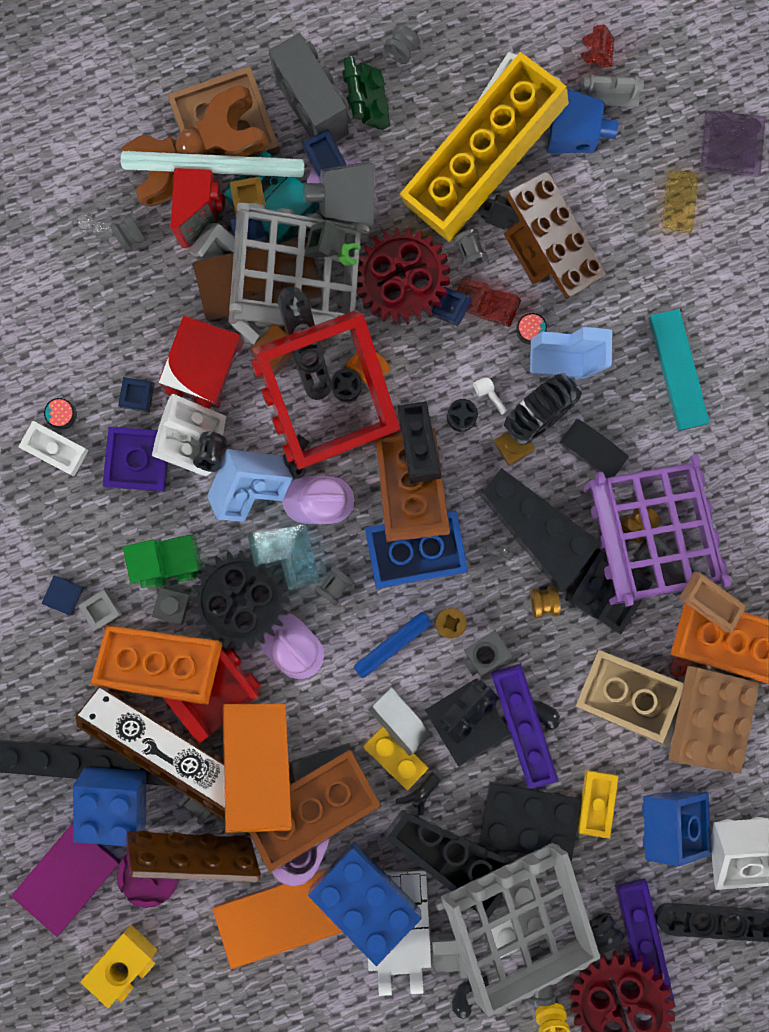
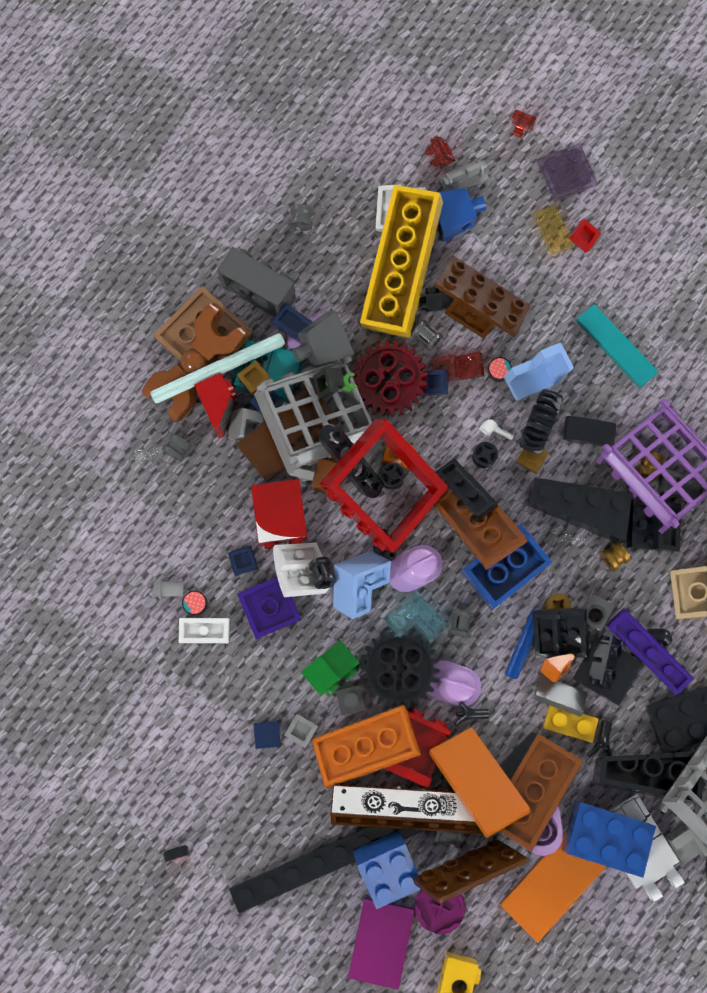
camera: 30 degrees left, 5 degrees down
(34, 380) = (168, 589): none -> light grey pin
(290, 688) = (470, 713): none -> black bar
(366, 93) = (296, 264): dark green plate -> none
(413, 688) = (557, 666): none -> orange slope
(436, 654) = (560, 632): none -> black slope
(711, 225) = (584, 235): none -> red plate
(713, 59) = (522, 121): none -> clear red tile

